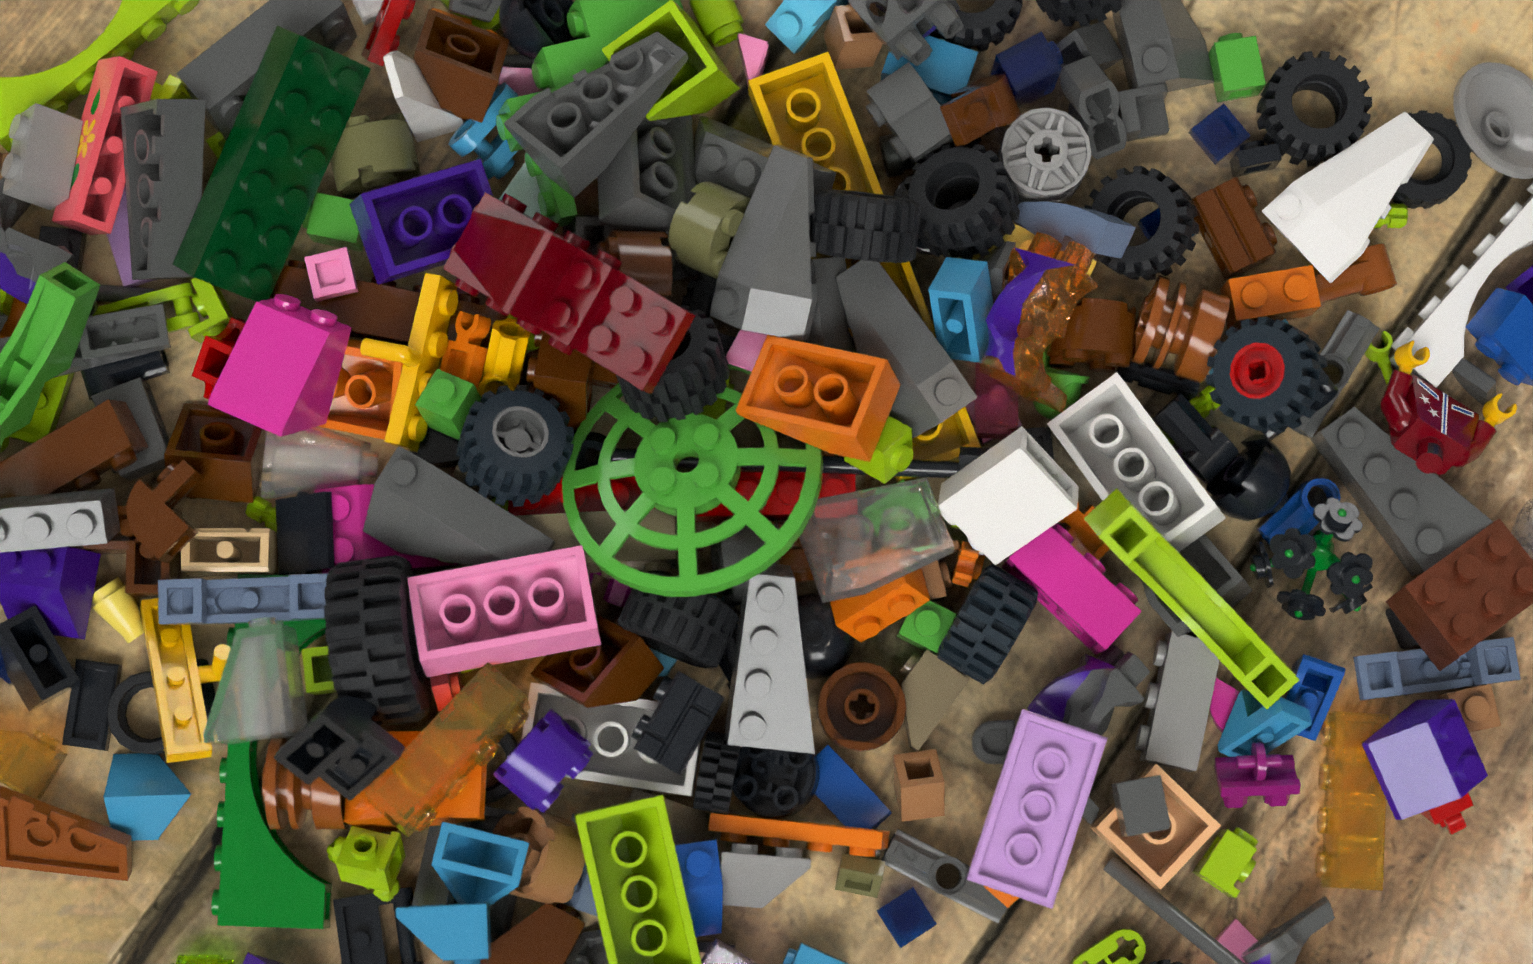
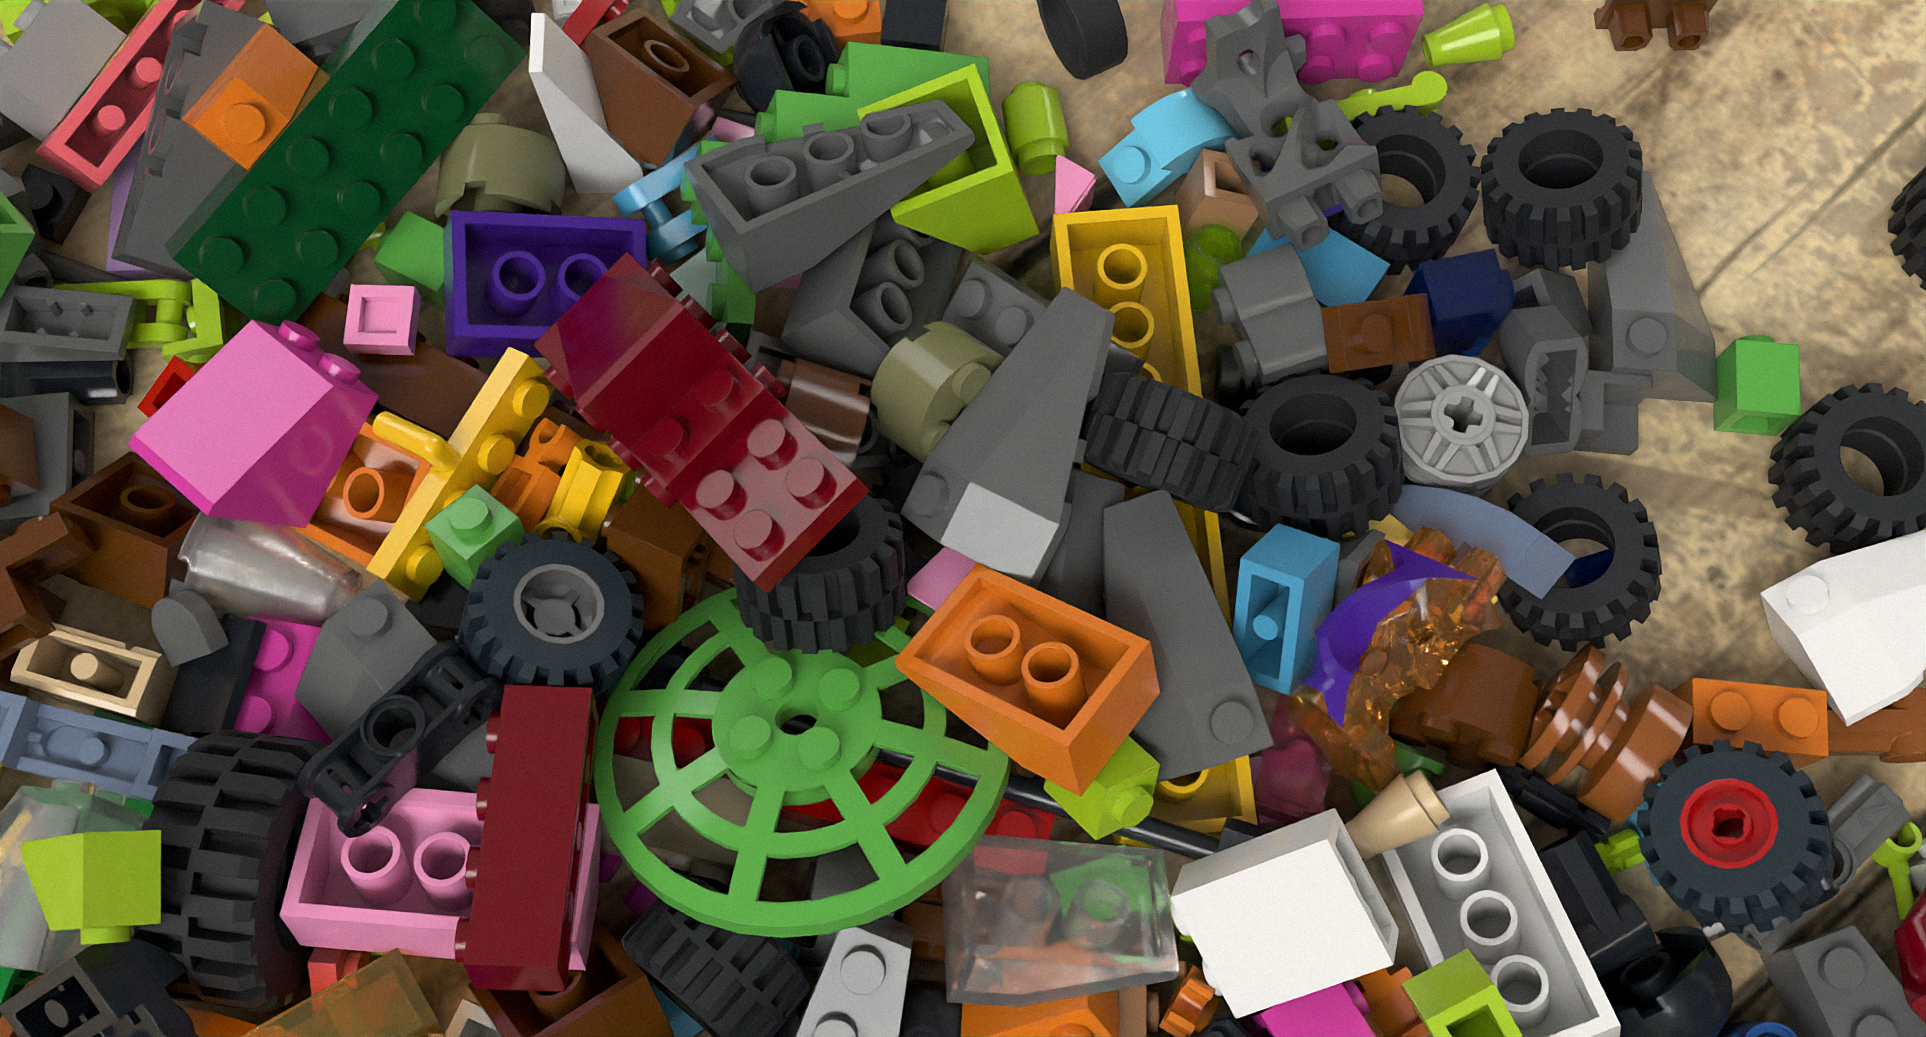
camera: 15 degrees right, 10 degrees down
(205, 154) = (253, 97): none -> orange slope
(281, 508) = (186, 627): none -> dark grey tile
(315, 669) = (97, 882): none -> lime slope
(466, 509) = (385, 774): none -> black piece
(553, 575) = (531, 840): none -> dark red brick
(856, 78) = (1204, 253): none -> clear neon green cone
(1064, 417) = (1397, 816): none -> tan cone
(1219, 134) = (1712, 471): clear blue plate -> none
(1233, 228) = (1709, 610): reddish brown brick -> none
(1255, 158) = (1760, 519): black plate -> none

